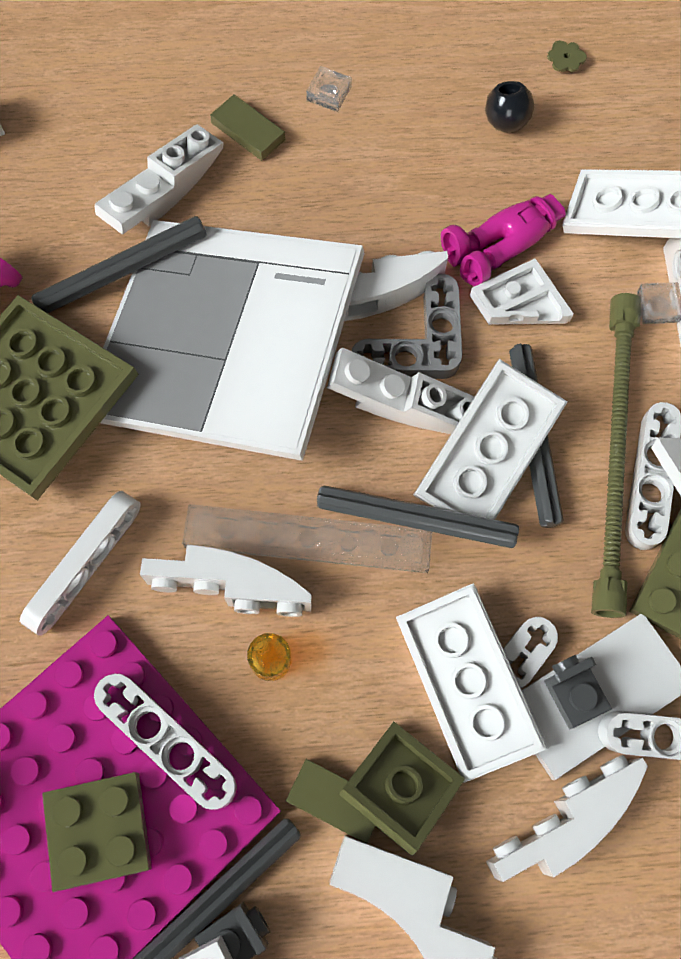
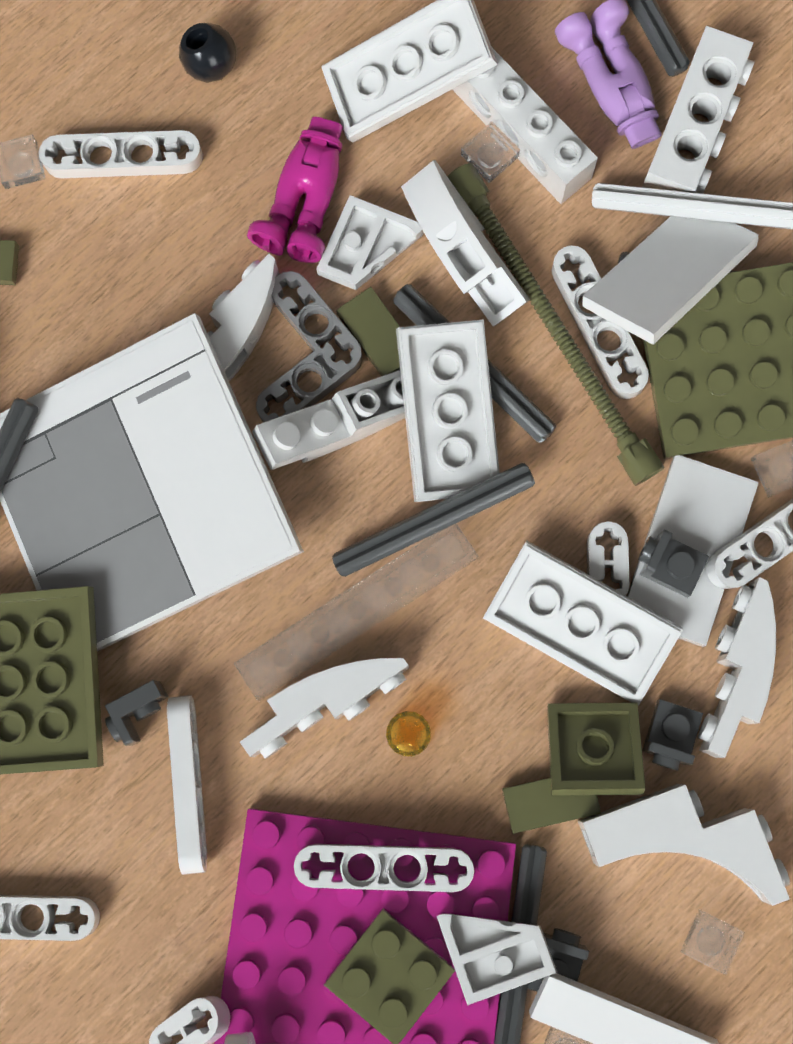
camera: 30 degrees left, 10 degrees up
(97, 476) = (138, 703): none -> dark grey bracket
(189, 884) = (494, 954): none -> white wing
(403, 127) = (120, 161): none -> white beam
(473, 829) = (672, 735): none -> dark grey bracket
(479, 354) = (373, 329): none -> olive tile
(591, 348) = (461, 244): none -> white slope

